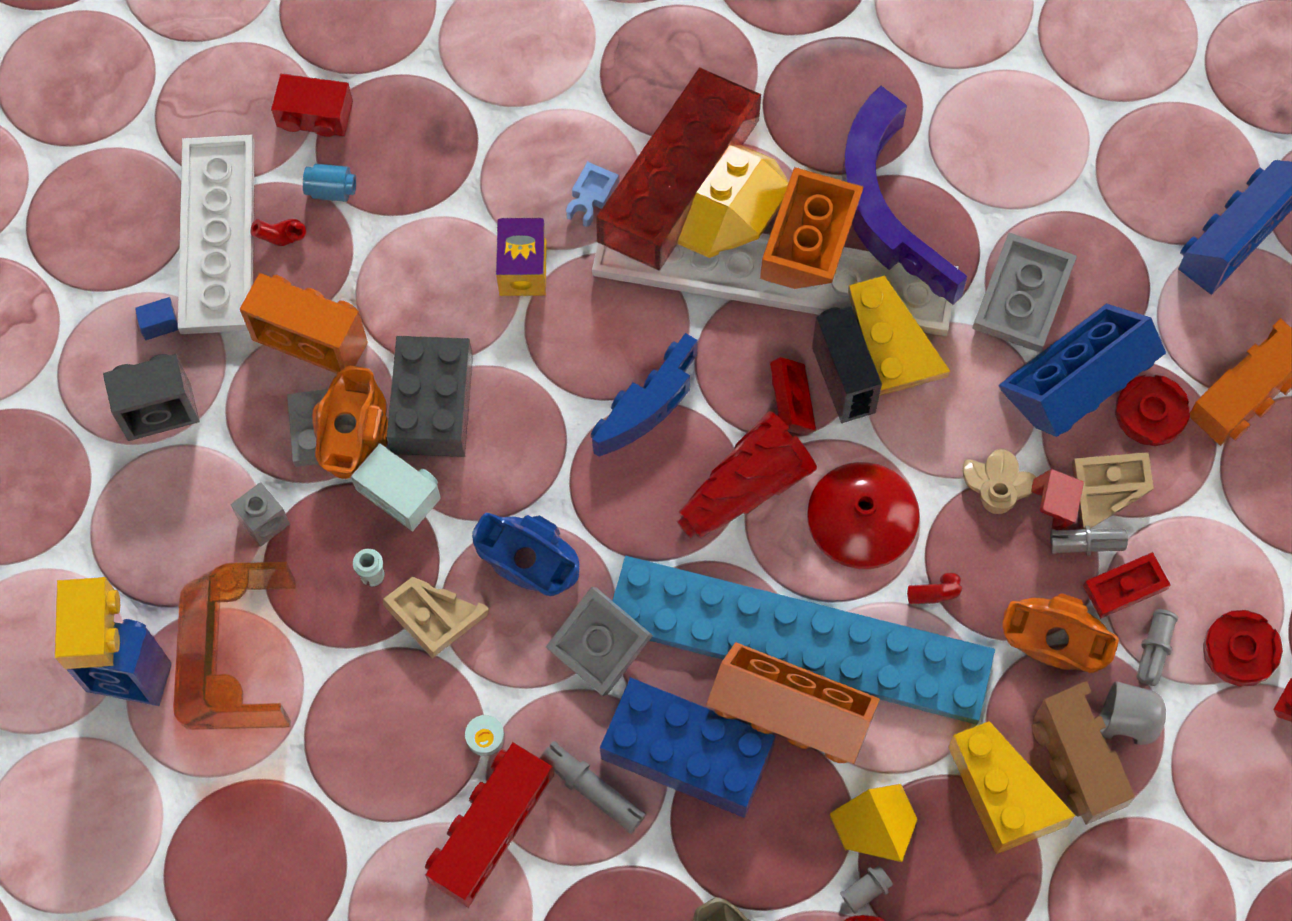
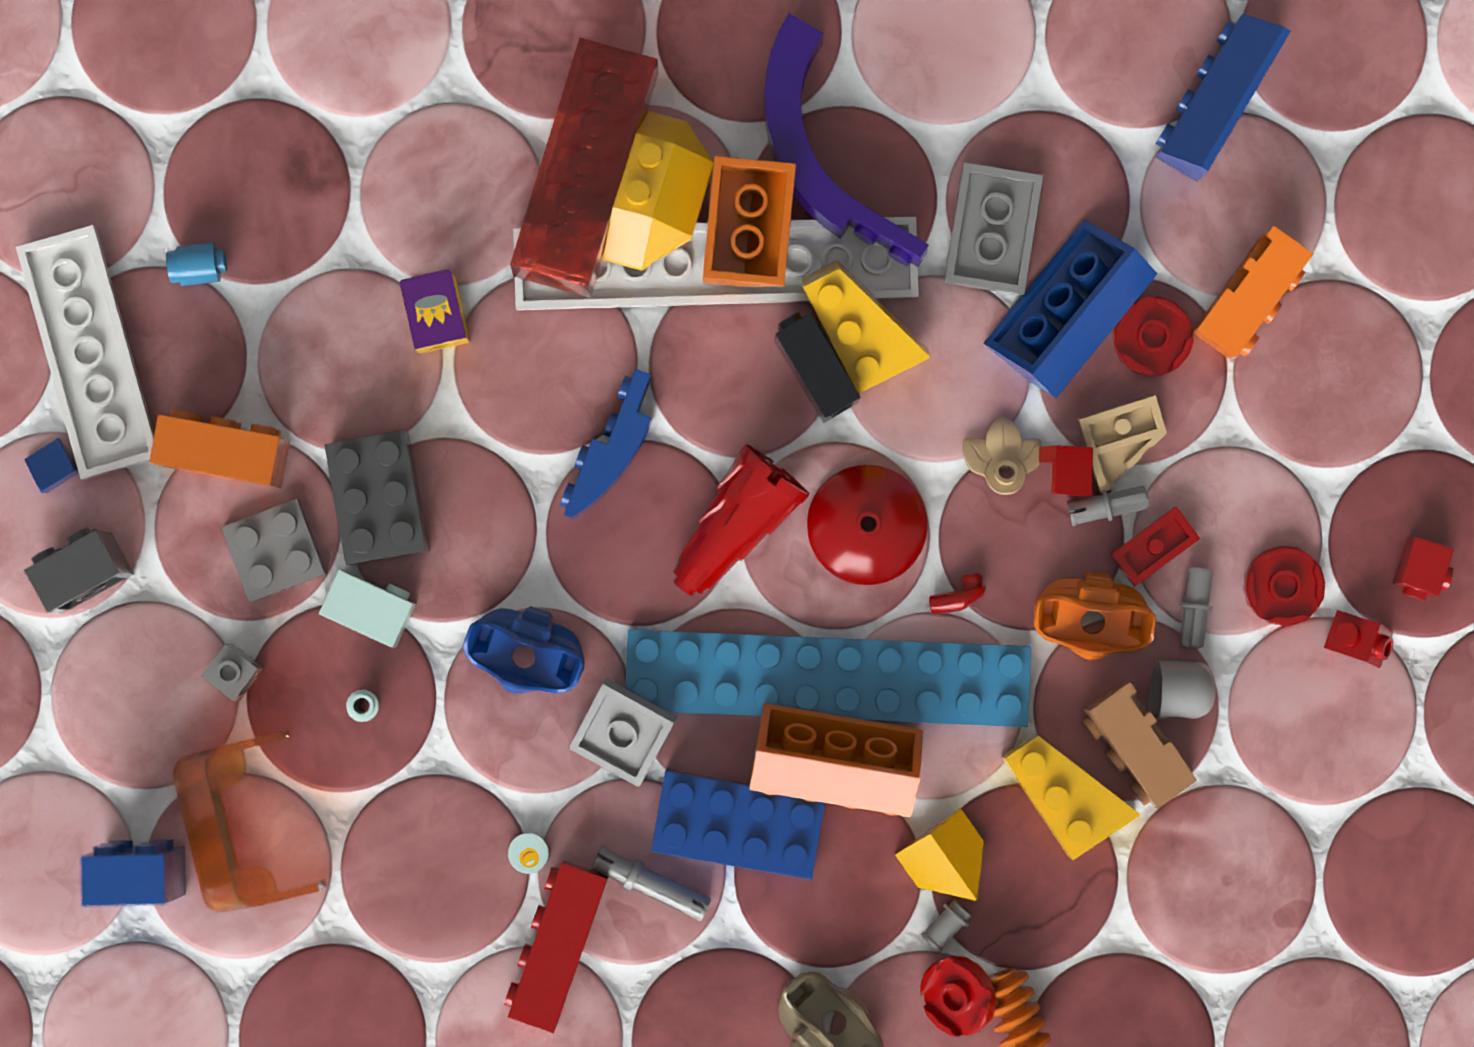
camera: 15 degrees left, 20 degrees up
(86, 623) = (103, 869): yellow brick -> none
(279, 233) = (158, 336): red arm -> none
(312, 105) = (149, 171): red brick -> none
(356, 394) = (304, 586): orange piece -> none
(432, 614) = (442, 738): tan wing -> none
(591, 189) = (494, 205): light blue plate -> none
(793, 395) = (766, 410): red plate -> none

